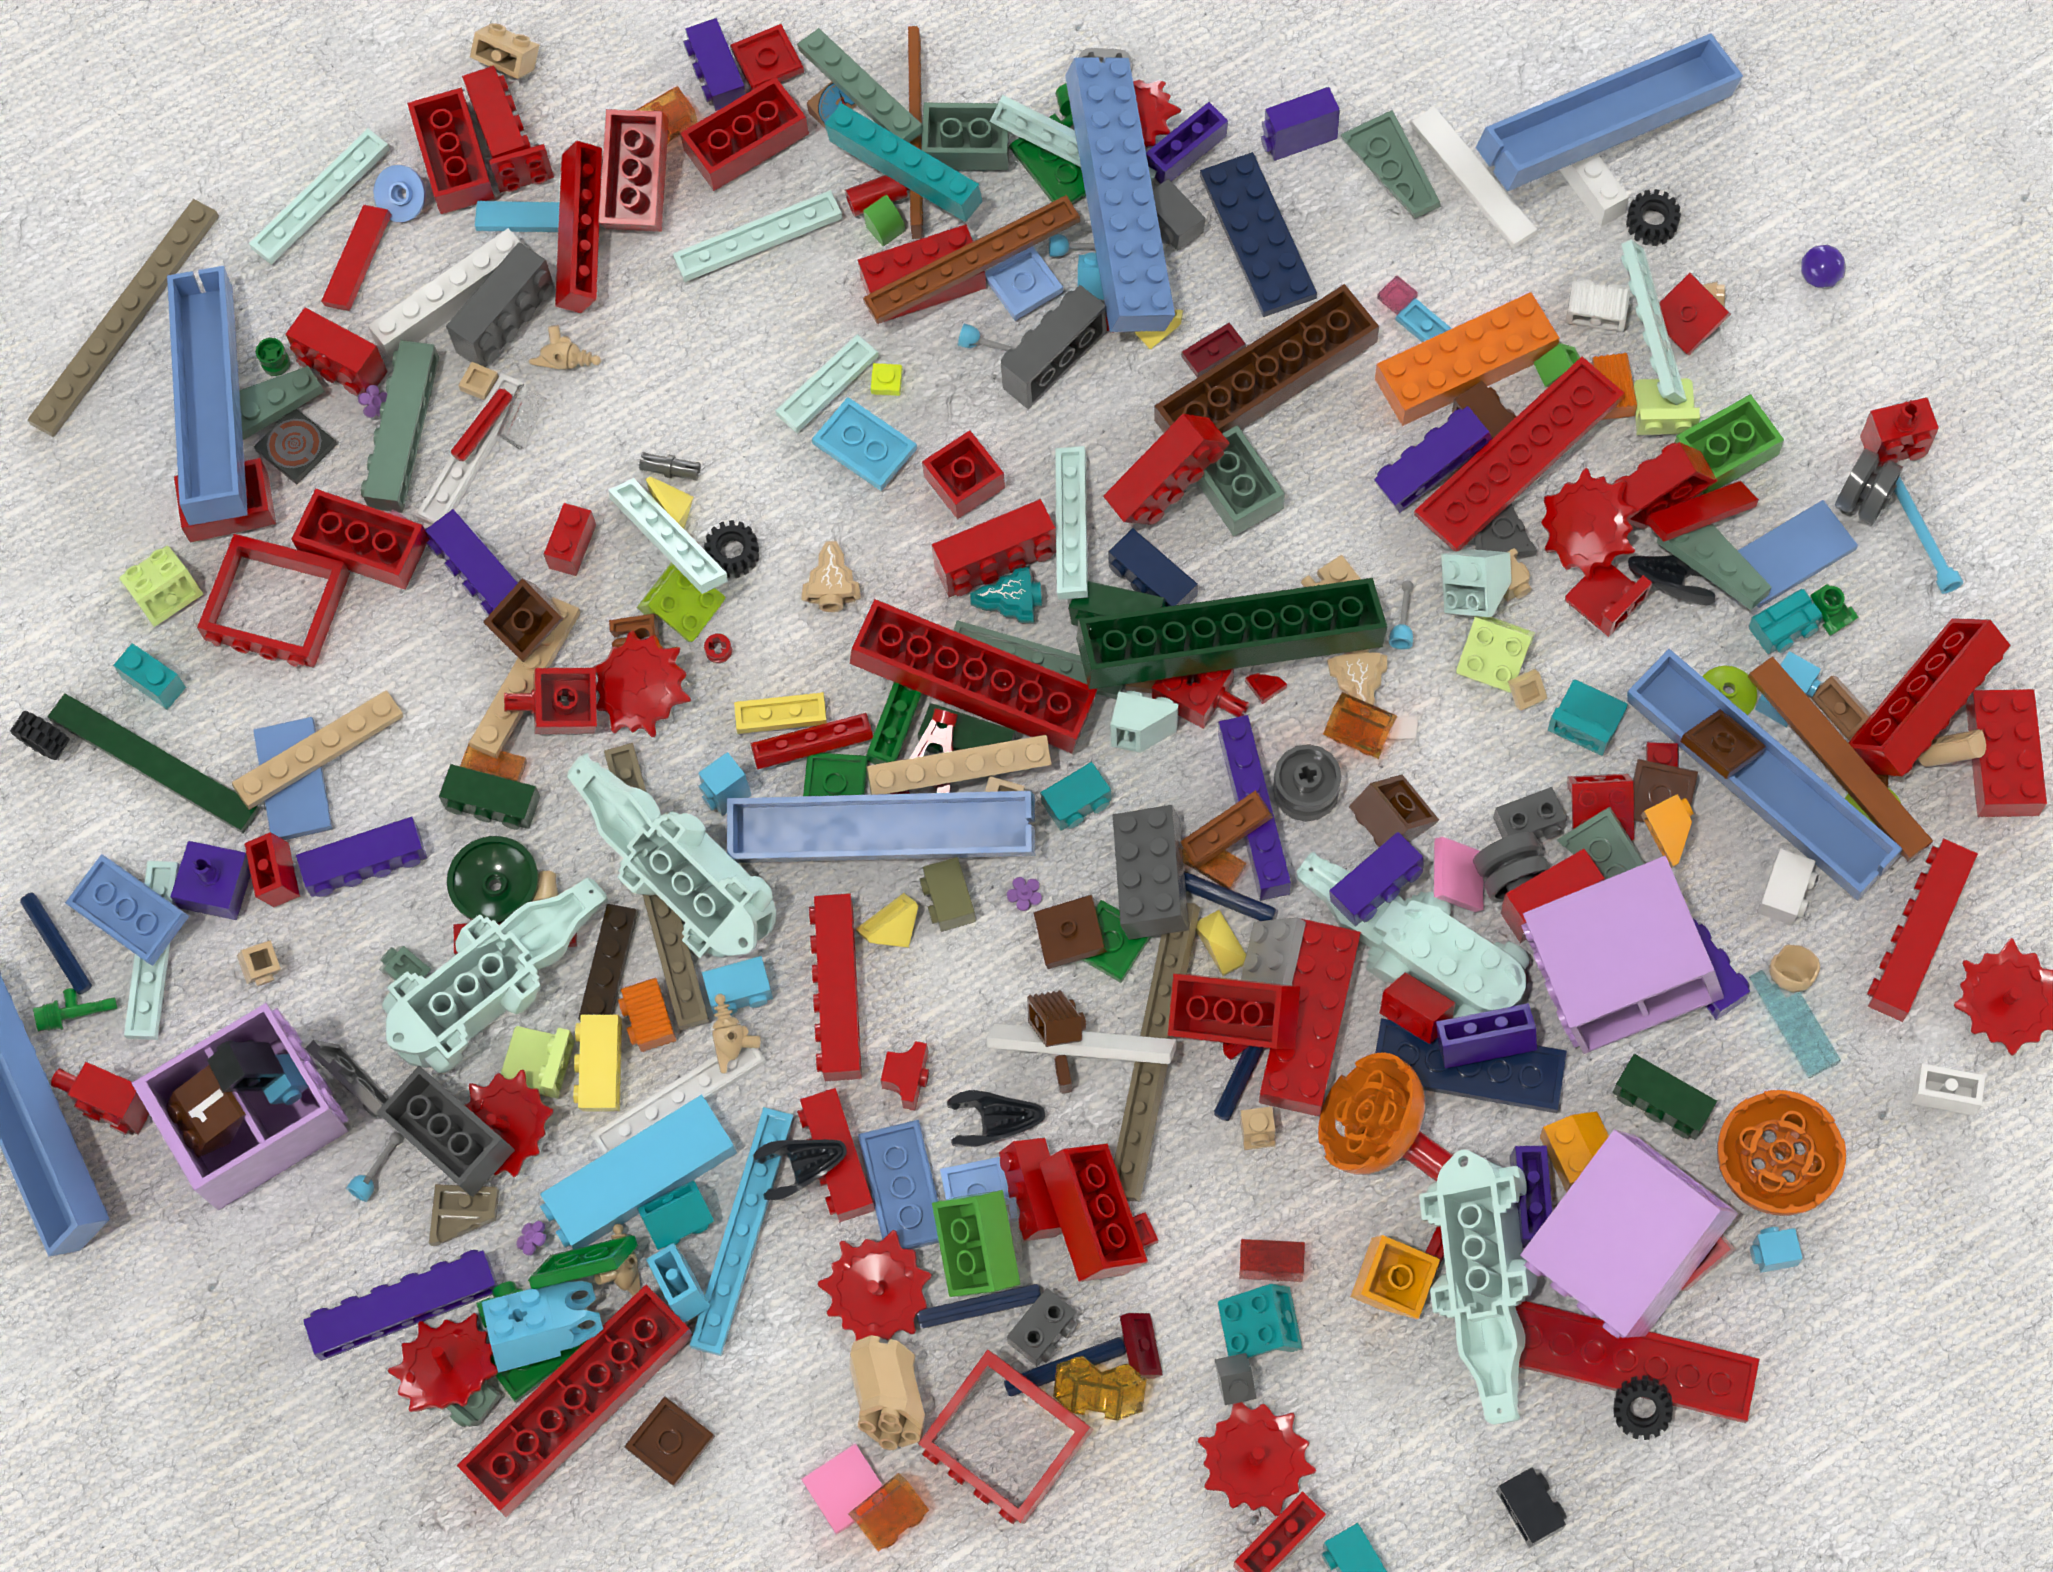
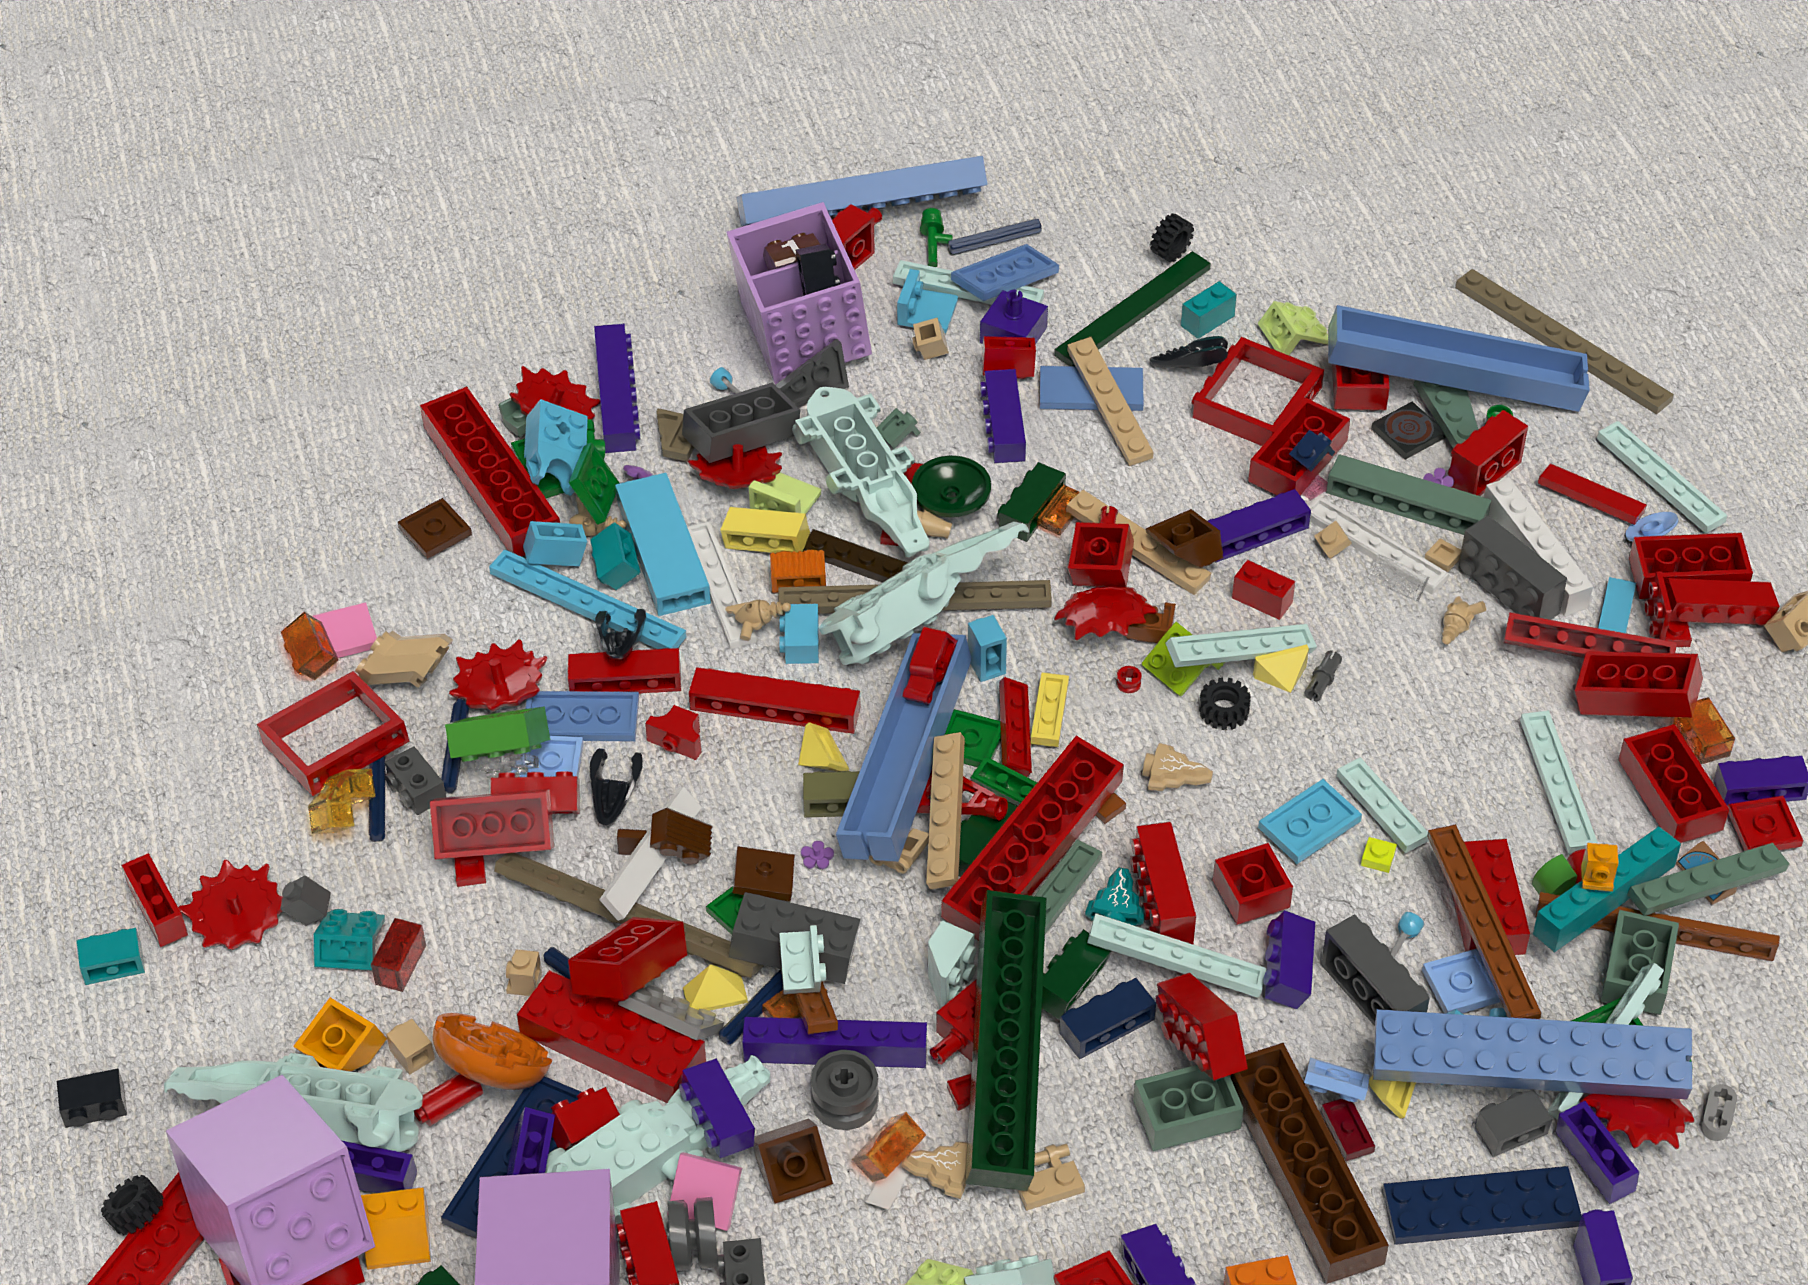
camera: 100 degrees right, 20 degrees down
(196, 987) = (922, 305): none -> medium azure bracket
(226, 687) = (1195, 354): none -> black animal
(381, 510) = (1312, 449): none -> dark blue bracket
(479, 488) = (1333, 539): none -> tan plate
(481, 424) = (1394, 546): red axle -> none
(774, 827) = (929, 664): none -> red piece
(908, 153) = (1599, 866): none -> light orange brick
(1043, 426) = (1289, 959): none -> dark purple brick
(1076, 797) = (894, 908): teal brick -> none
(1141, 1344) = (368, 845): dark red plate -> none
(1172, 361) = (1327, 1076): none -> light blue plate
(1196, 839) = (801, 961): none -> light aqua bracket
(1374, 1210) = (410, 1046): none -> tan brick
(1401, 635) = (981, 1217): medium azure hinge -> none

